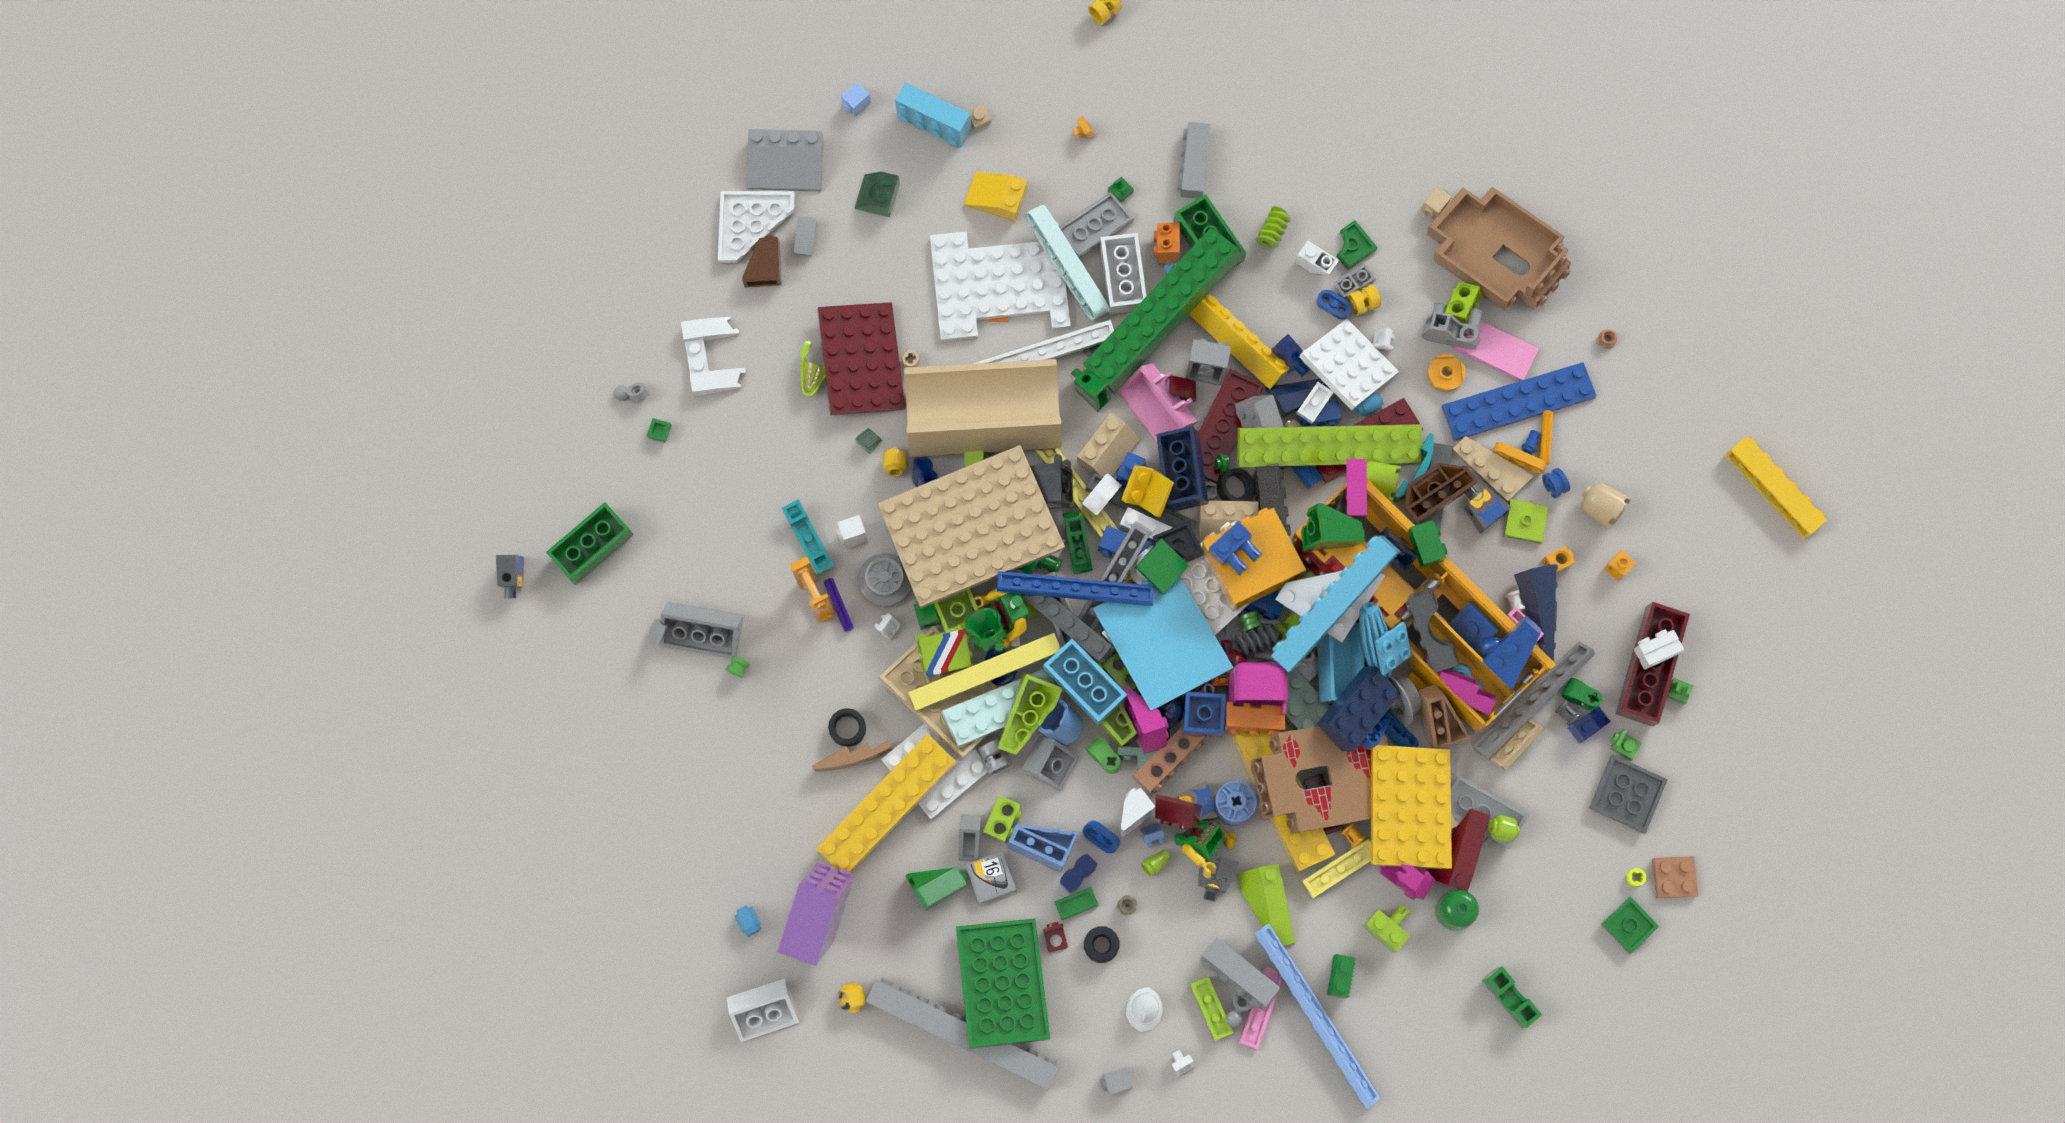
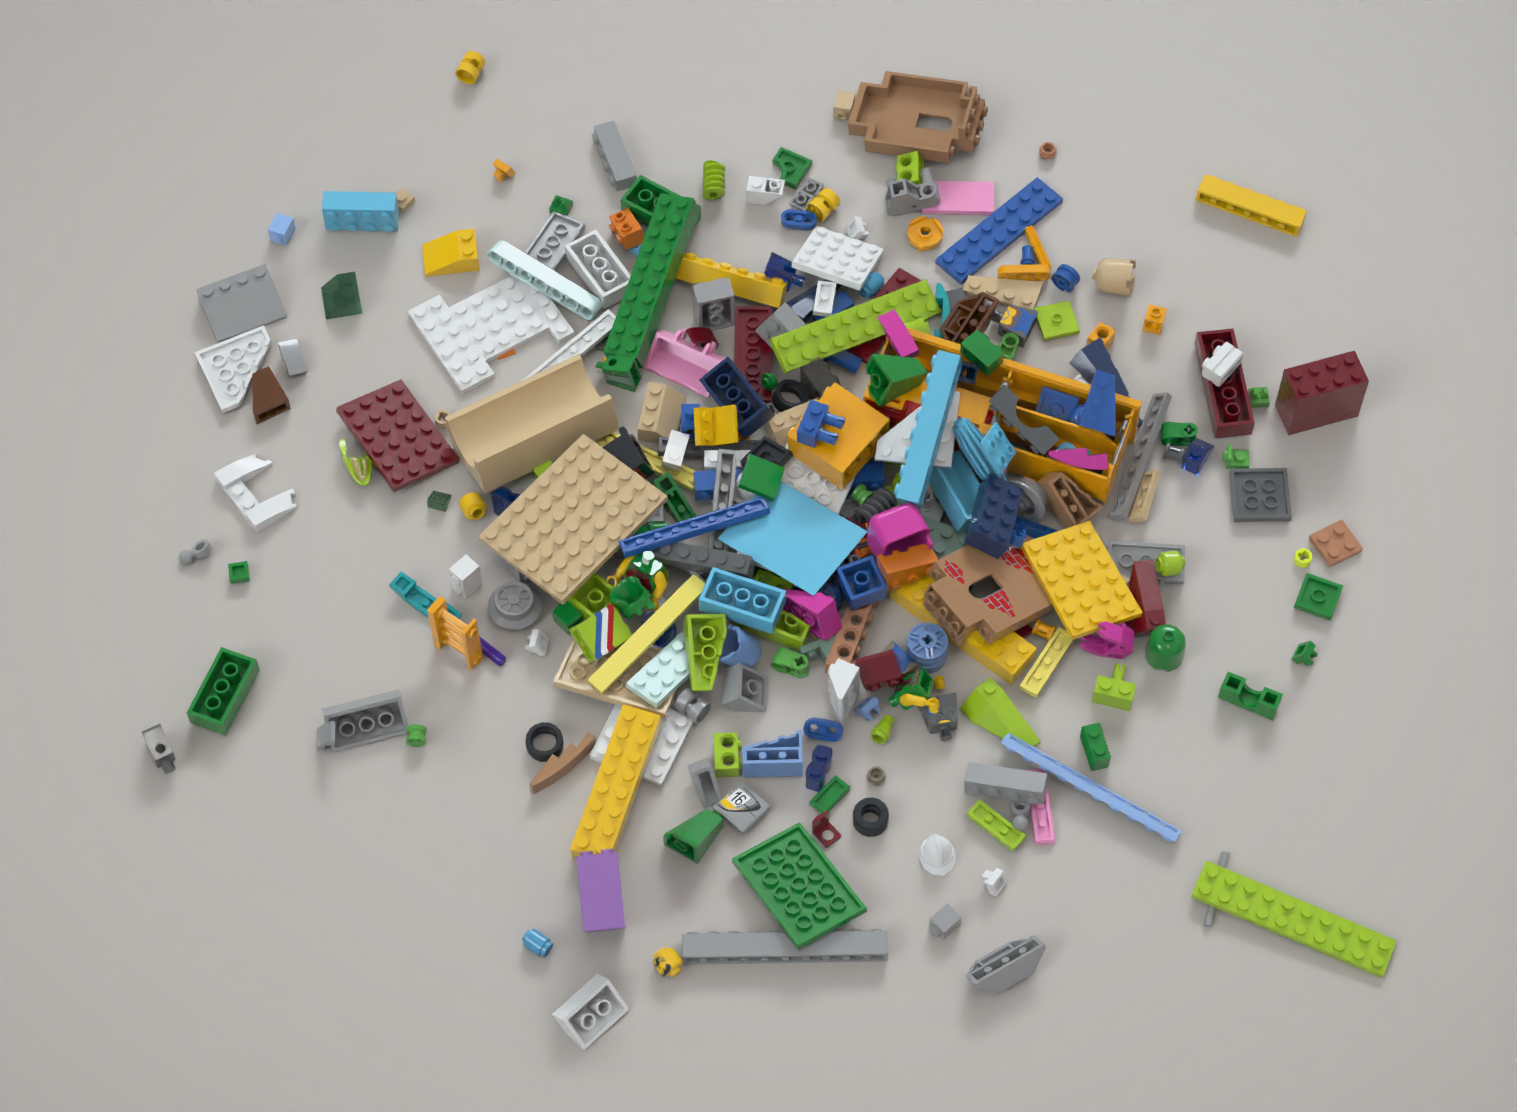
camera: 25 degrees left, 15 degrees down
(1459, 535) = (1010, 351): none -> bright green piece
(1586, 975) = (1304, 652): none -> green tile
(1740, 724) = (1321, 392): none -> dark red brick

